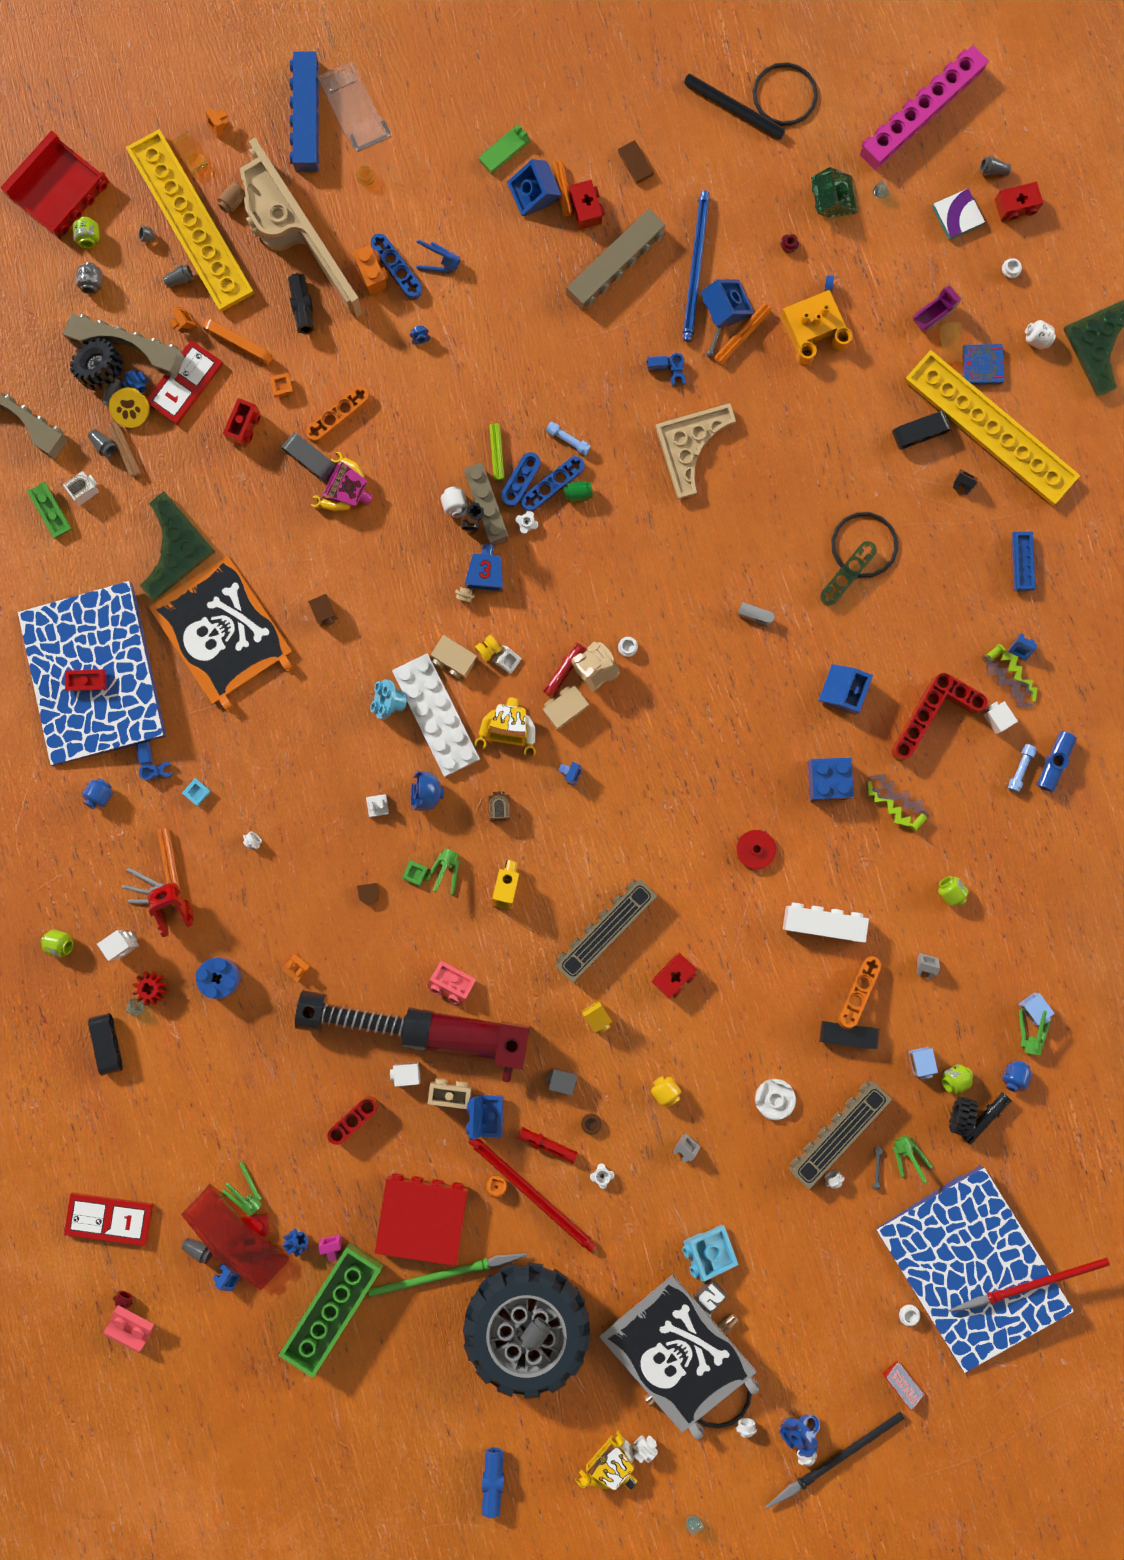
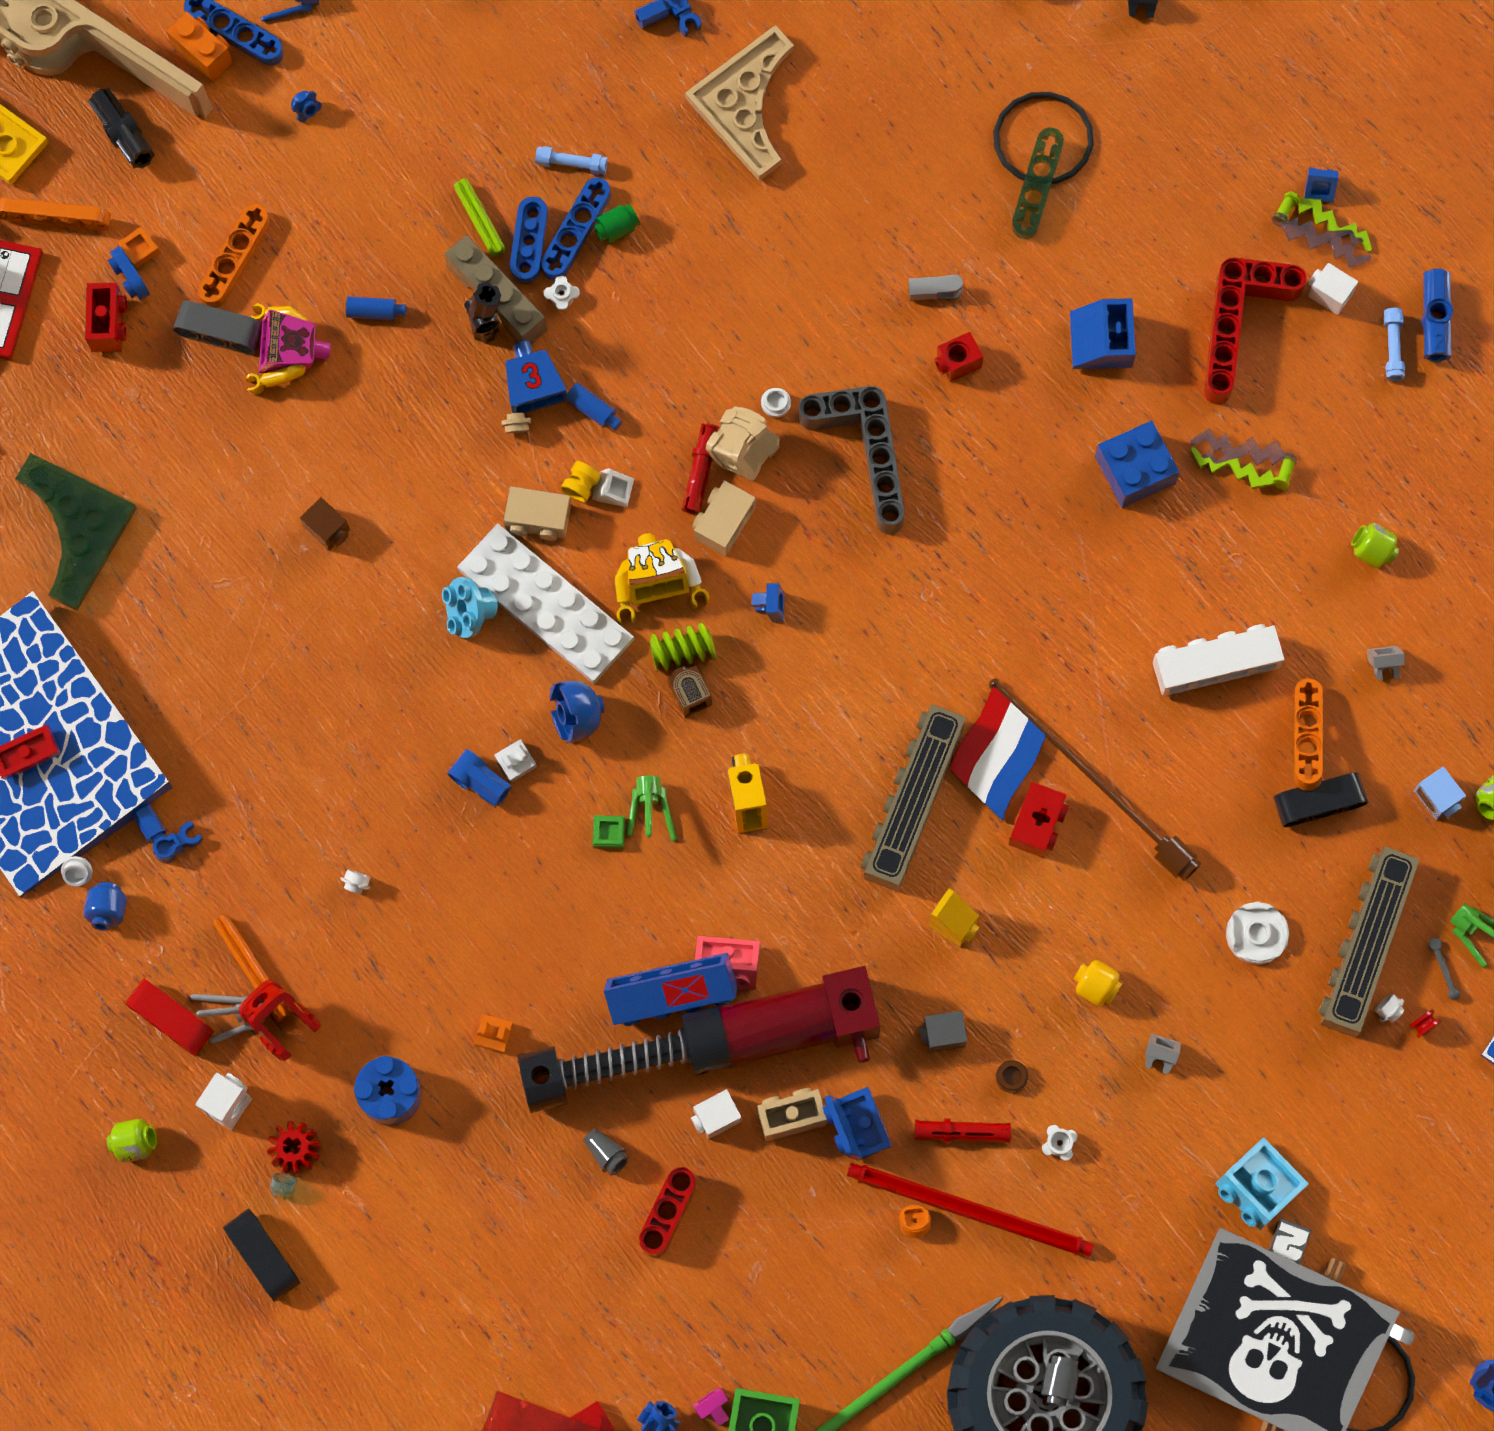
camera: 15 degrees left, 10 degrees down
(89, 765) = (76, 871): none -> white plate
(108, 877) = (169, 1017): none -> red beam
(196, 792) = (247, 847): medium azure tile -> none
(221, 631) = (190, 612): flag -> none
(248, 1204) = (567, 1394): bright green plant -> none
(269, 407) = (133, 283): none -> blue plate
(332, 1070) = (606, 1152): none -> dark grey cone
(348, 804) = (473, 774): none -> blue piece
(368, 893) = (553, 886): reddish brown tile -> none
(408, 484) = (374, 308): none -> blue cylinder
(409, 989) = (671, 989): none -> blue brick
(421, 1219) = (827, 1310): red panel -> none
(453, 500) = (447, 305): white head -> none
(505, 778) = (682, 646): none -> lime piece
(515, 603) = (593, 407): none -> blue cylinder
(671, 923) = (1002, 753): none -> flag
(674, 700) = (873, 445): none -> dark grey beam
(745, 849) = (1076, 617): red plate -> none
(746, 1427) = (1424, 1411): white plate -> none
(757, 659) = (965, 346): none -> red brick
(851, 1198) = (1425, 1023): none -> red bush
(1023, 561) = (1269, 73): blue plate -> none

